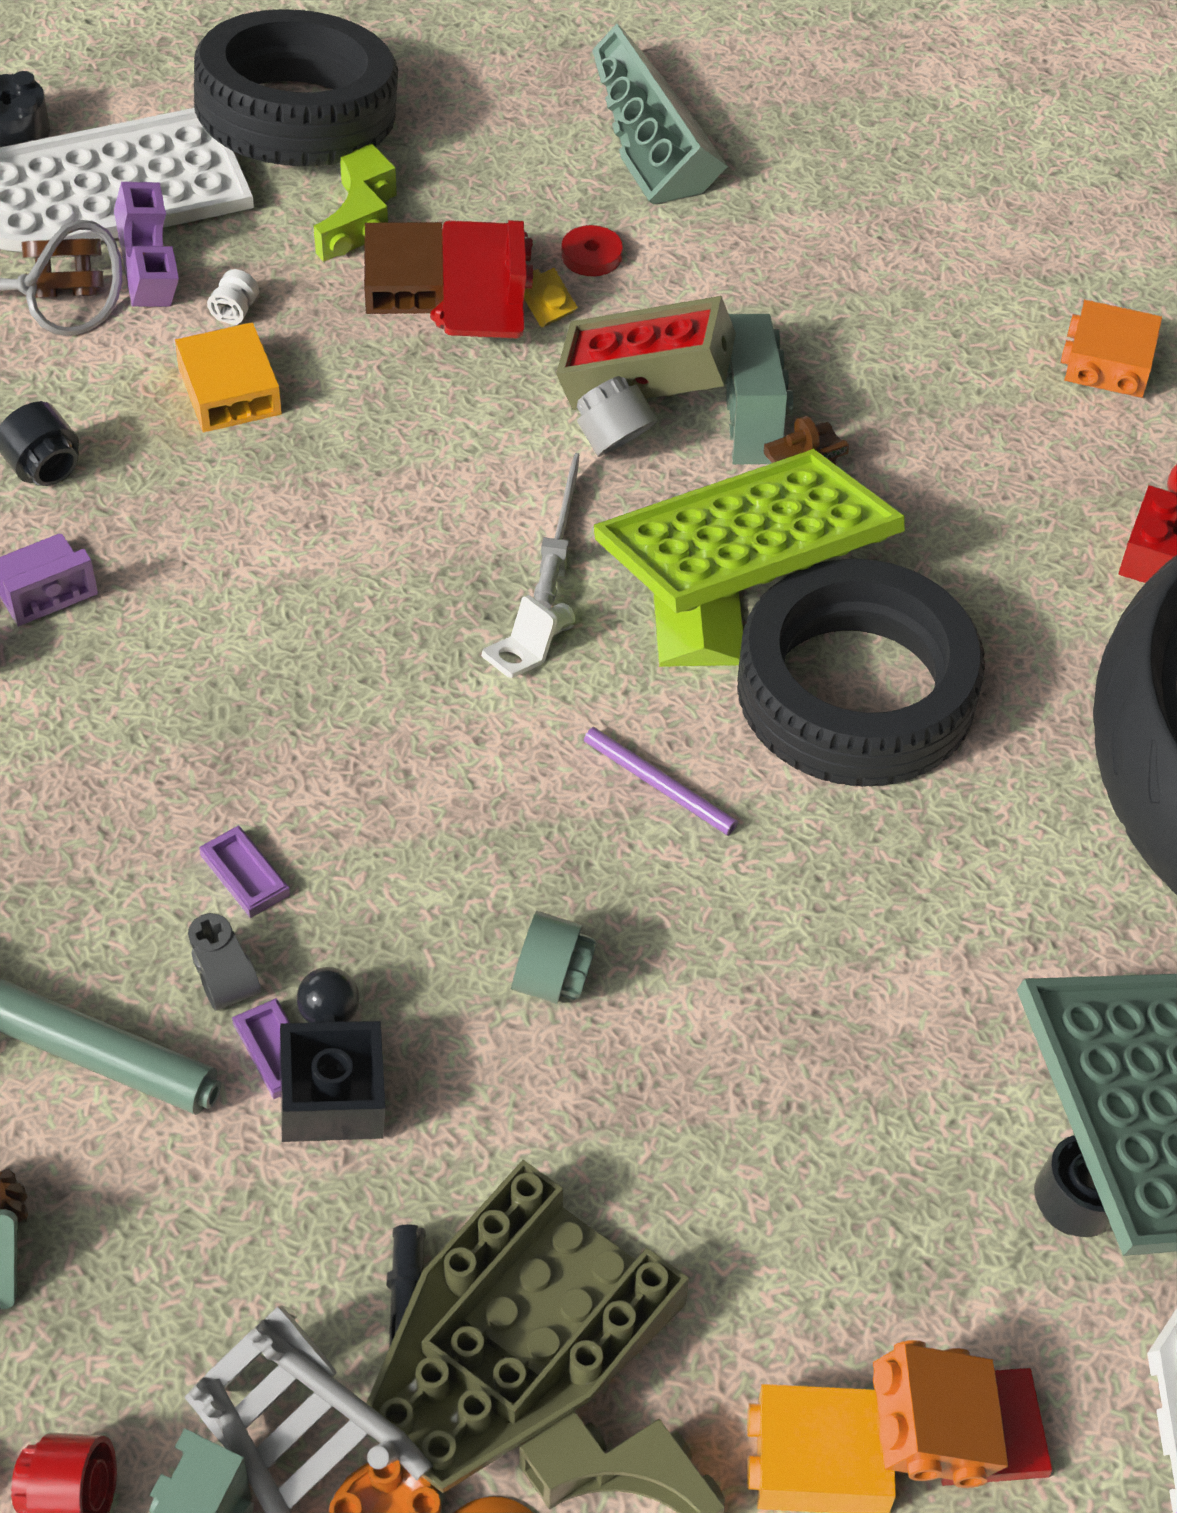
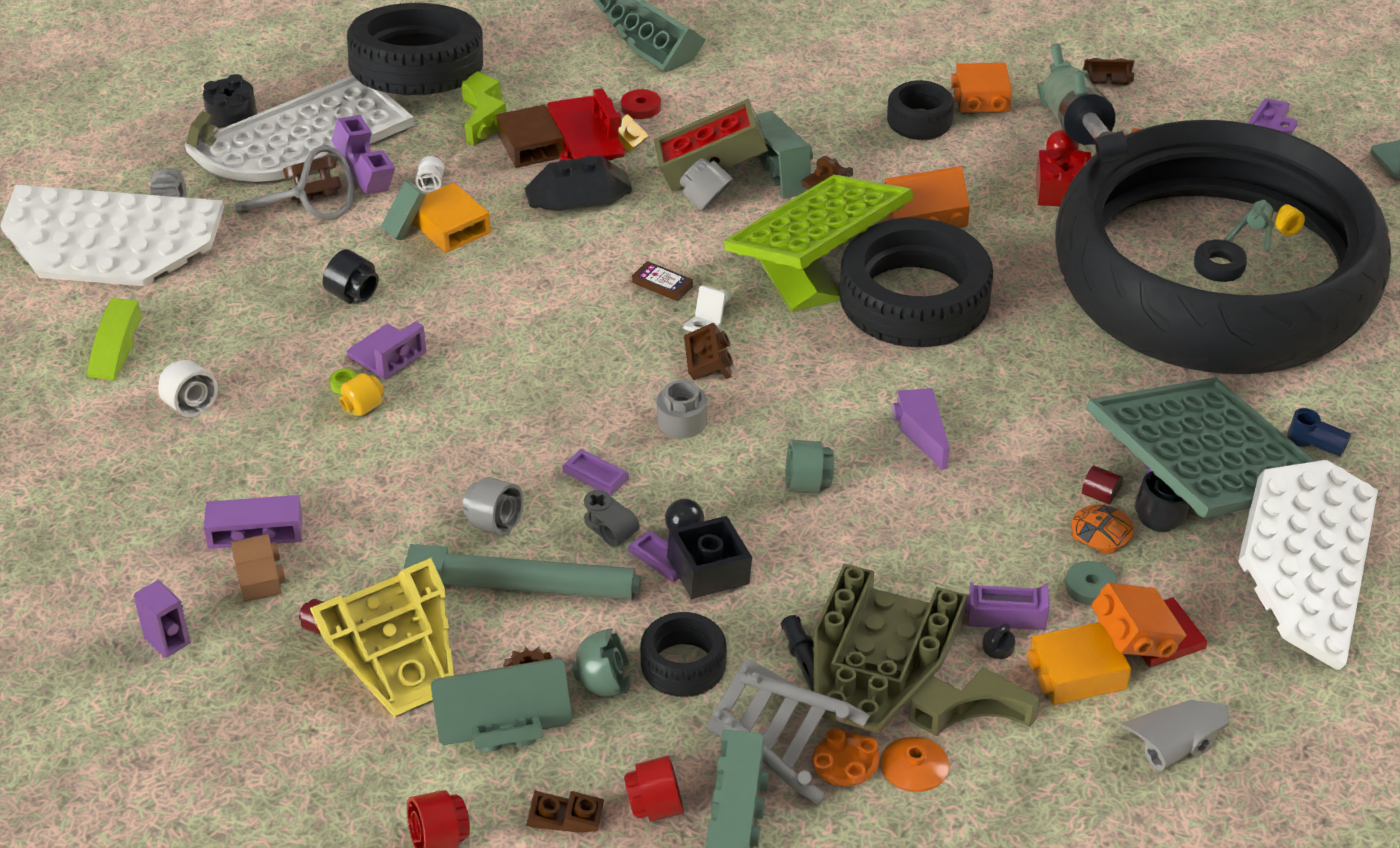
camera: 15 degrees left, 10 degrees down
(61, 886) = (492, 501): none -> light grey piece
(88, 1220) = (601, 664): none -> sand green cylinder
(162, 351) = (403, 210): none -> sand green tile
(225, 1291) = (683, 678): none -> black tyre
(412, 801) = (681, 409): none -> light grey piece
(438, 368) = (577, 184): none -> black wedge
(489, 563) = (662, 281): none -> tile
(498, 708) = (707, 352): none -> reddish brown bracket
(555, 549) = (701, 263): light grey sword -> none
(661, 781) = (822, 368): medium lavender piece -> none
(717, 1366) = (999, 642): none -> black tile
(754, 1306) = (1008, 605): none -> medium lavender window
(765, 923) = (922, 423): none -> medium lavender slope
(908, 1319) = (1084, 572): none -> sand green piece
(946, 533) = (936, 196): none -> orange slope
(972, 1198) = (1102, 528): none -> orange dish
(998, 390) = (925, 123): none -> black tyre
(1004, 1118) = (1101, 484): none -> dark red brick

